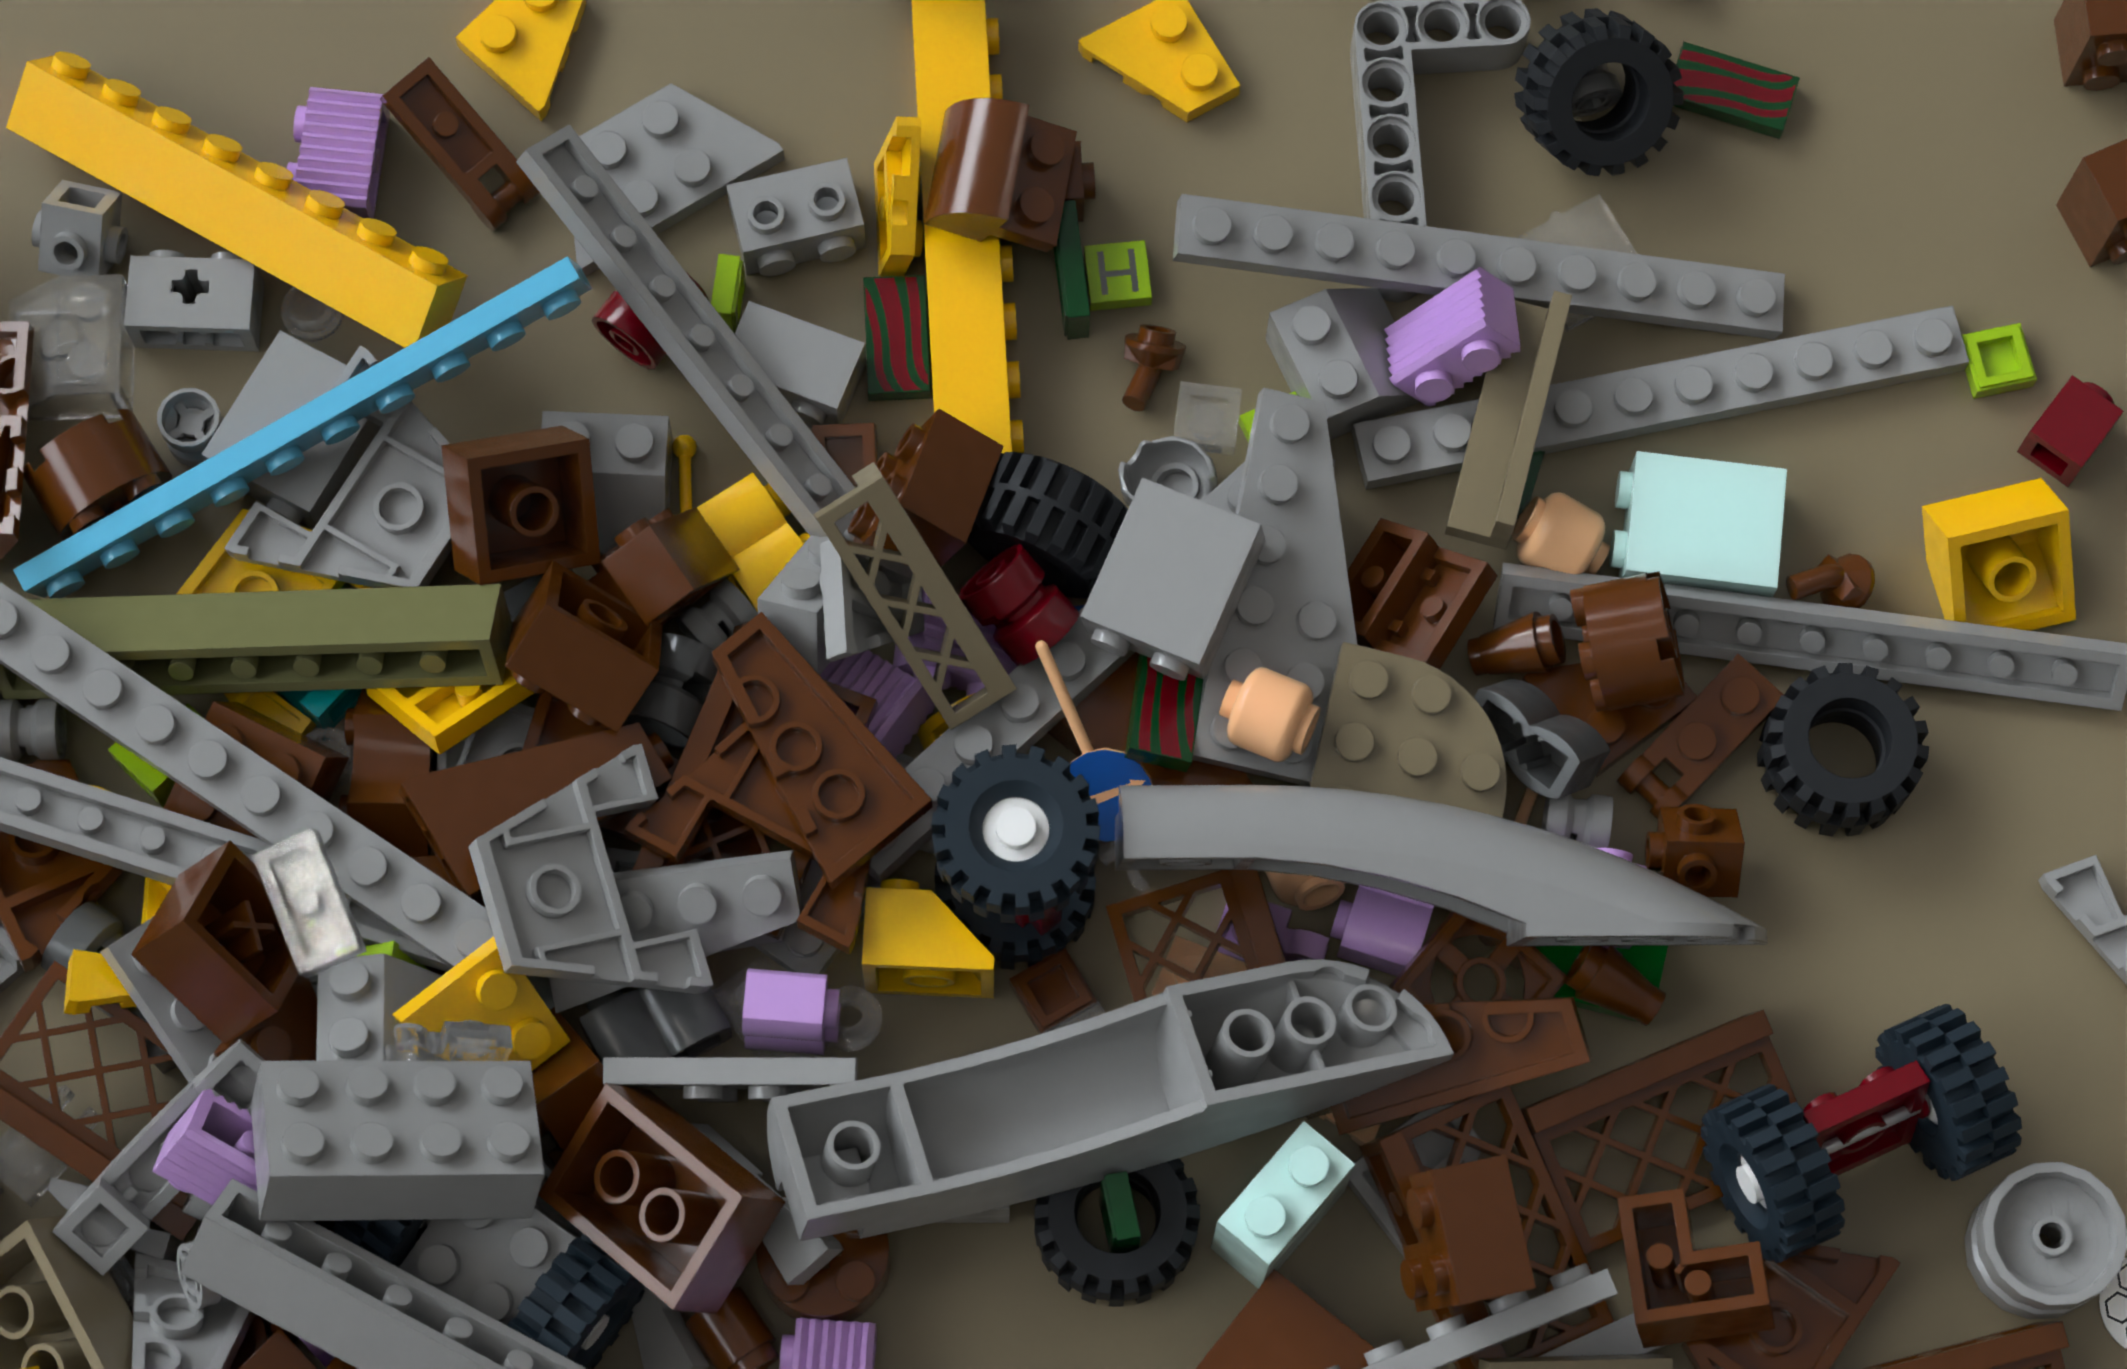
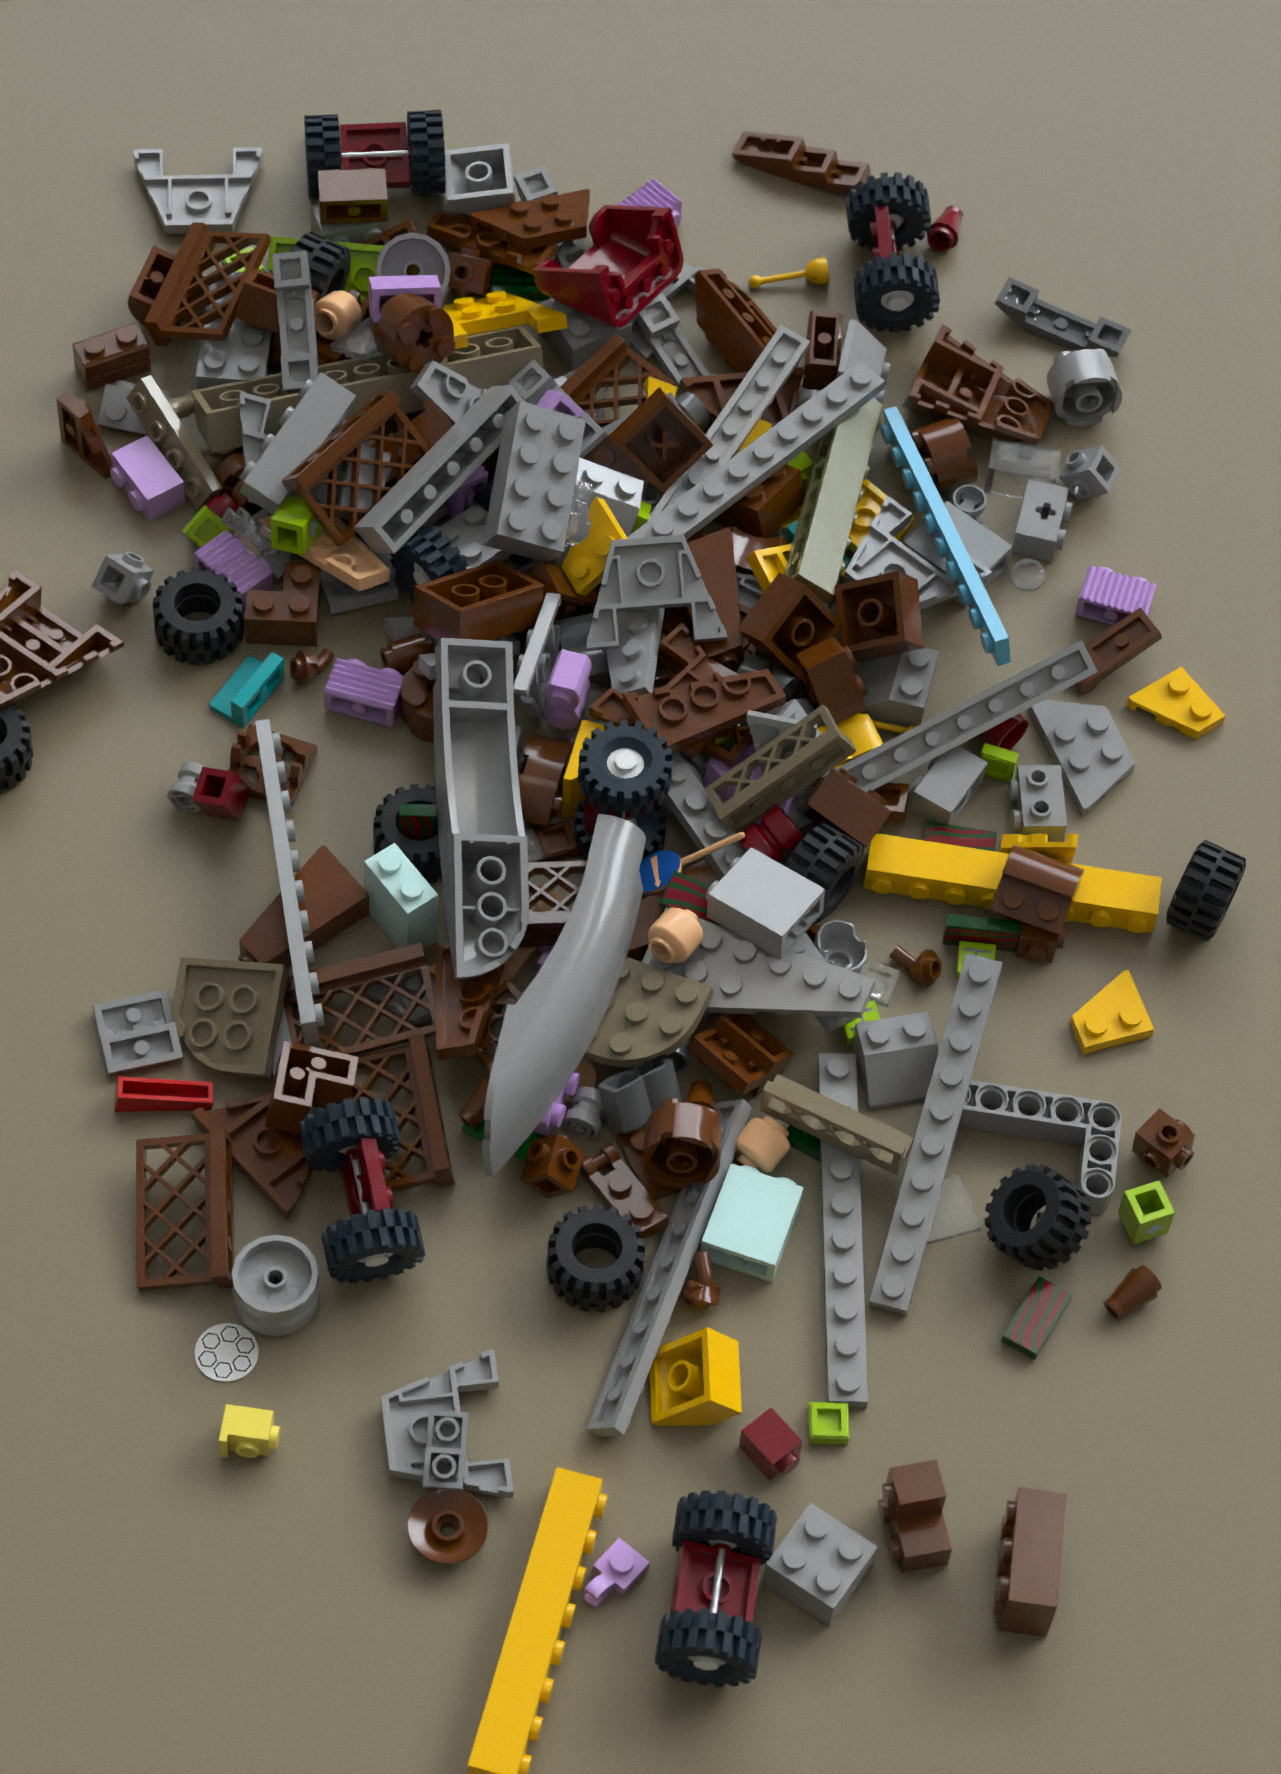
camera: 100 degrees right, 15 degrees down
(234, 199) = (1091, 537): yellow brick -> none
(309, 903) = (672, 474): clear plate -> none
(927, 1027) = (543, 777): none -> reddish brown brick
(1453, 337) = (893, 1104): lavender brick -> none
(1469, 1236) = (349, 950): reddish brown brick -> none

